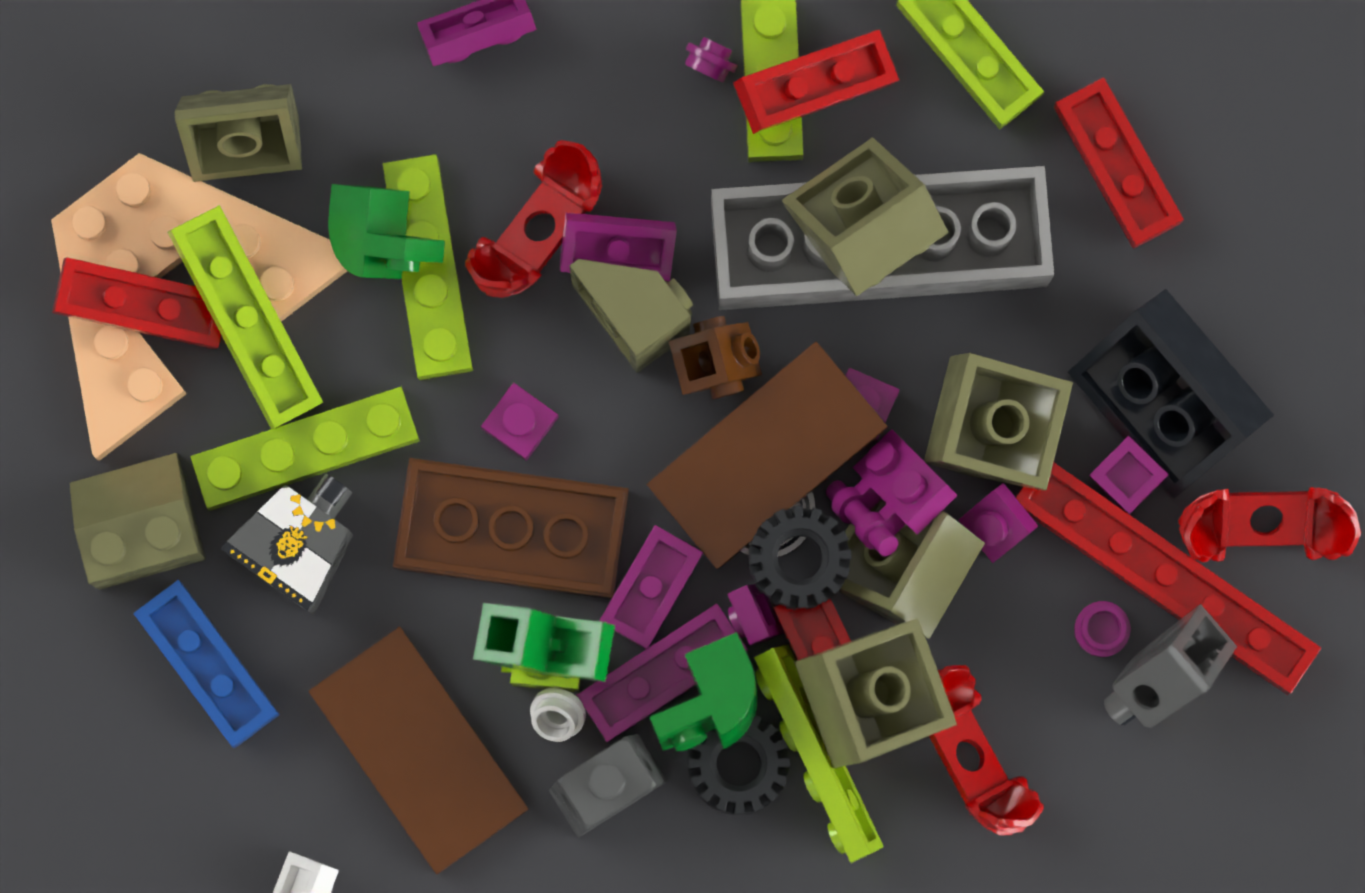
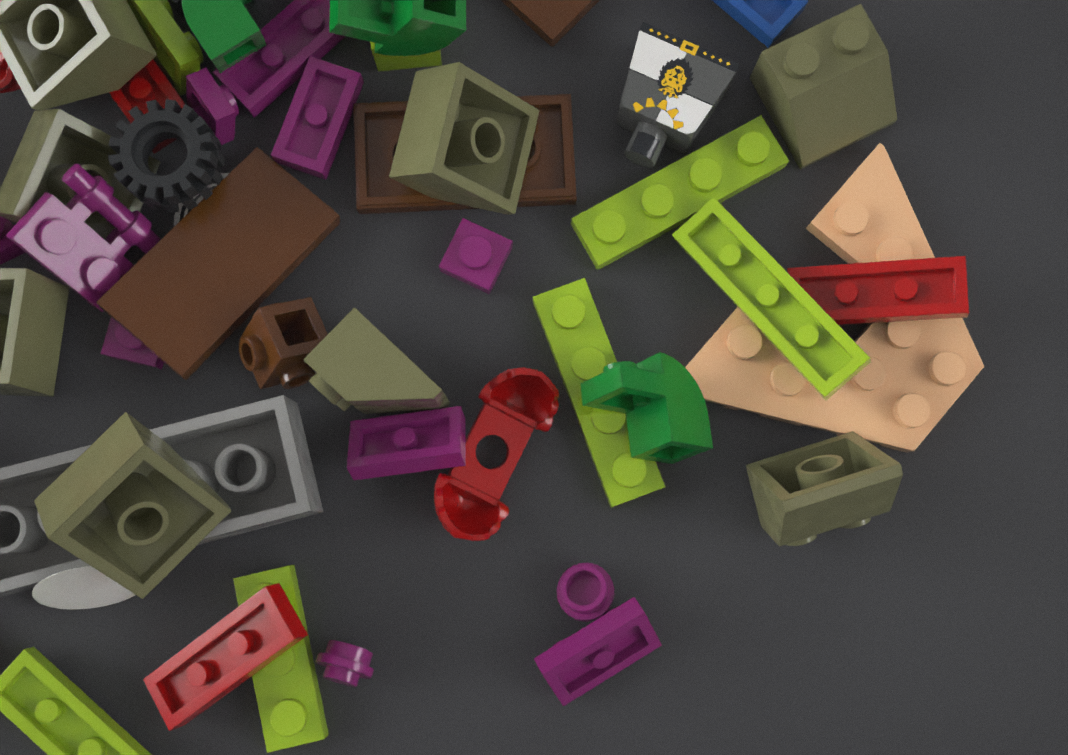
camera: 170 degrees right, 0 degrees up
(477, 82) = (585, 592): none -> magenta plate
(508, 522) = (464, 139): none -> olive slope
(937, 165) = (79, 590): none -> white sticker

